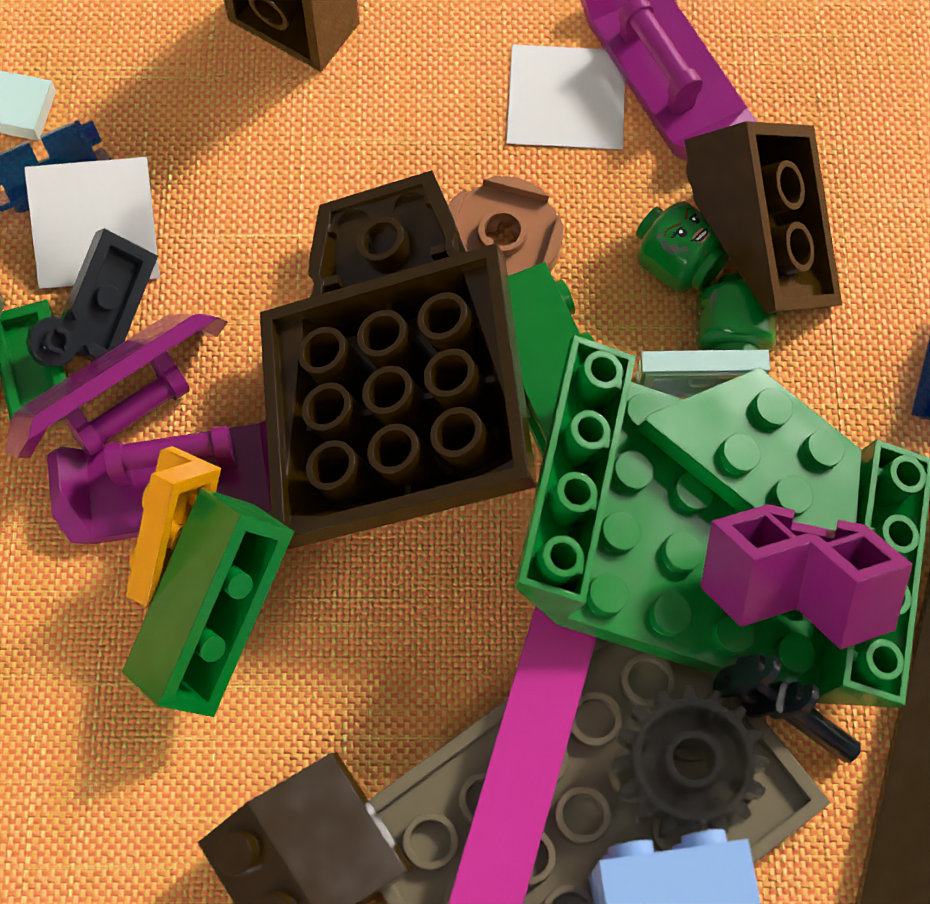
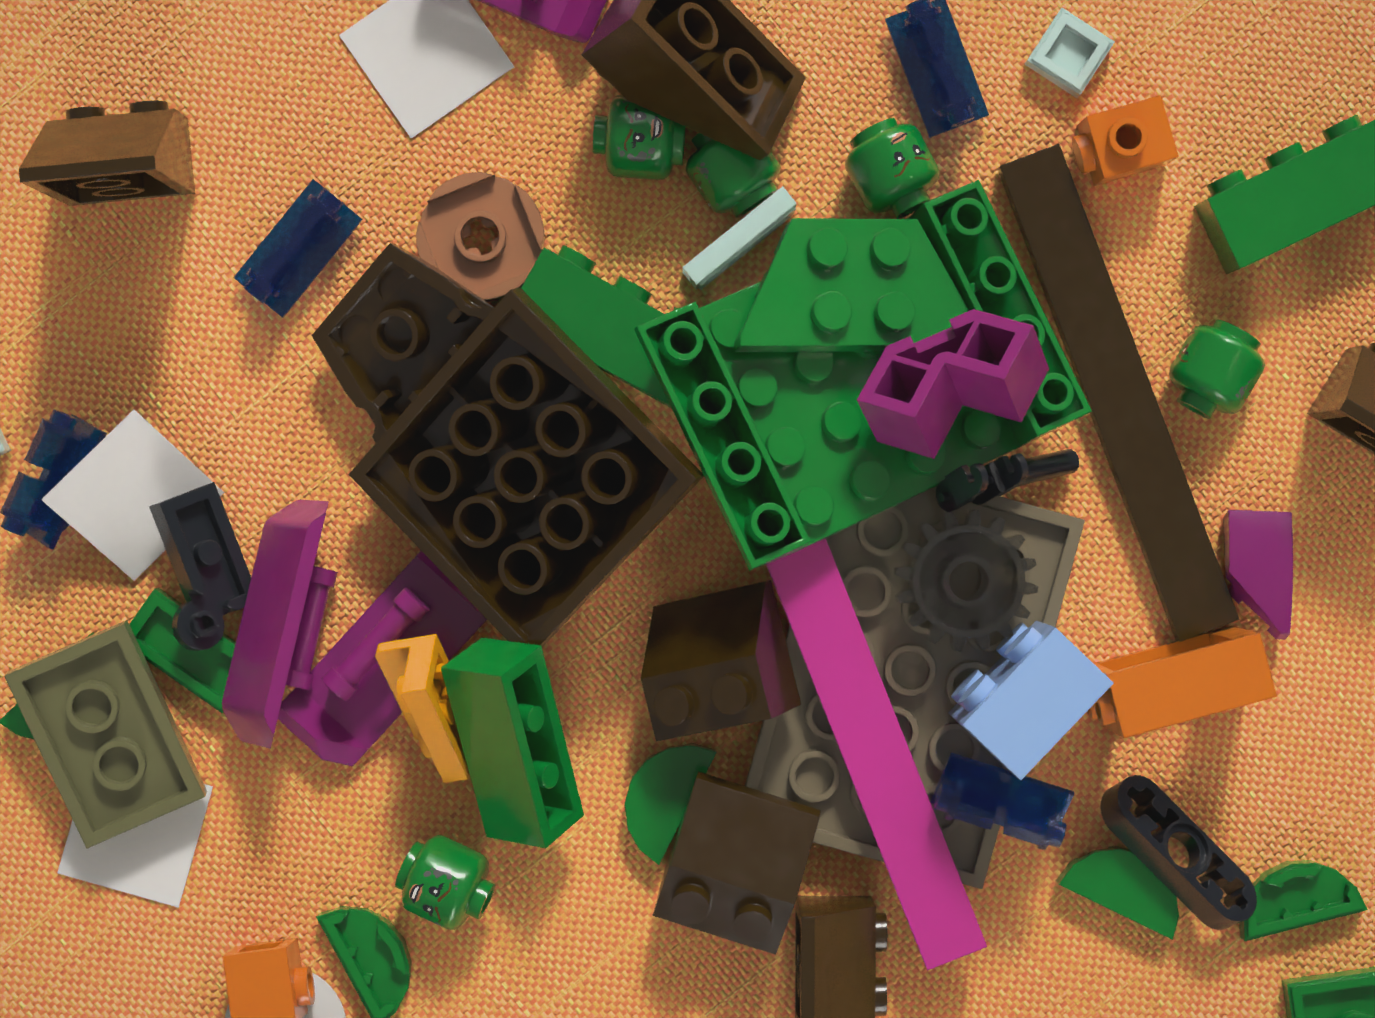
camera: 40 degrees left, 20 degrees up
(56, 684) = (445, 882): none -> green head
(288, 750) = (661, 793): none -> green tile
(362, 151) = (297, 248): none -> clear blue hinge
(424, 679) = (717, 662): none -> dark brown slope
(867, 401) = (891, 168): none -> green head

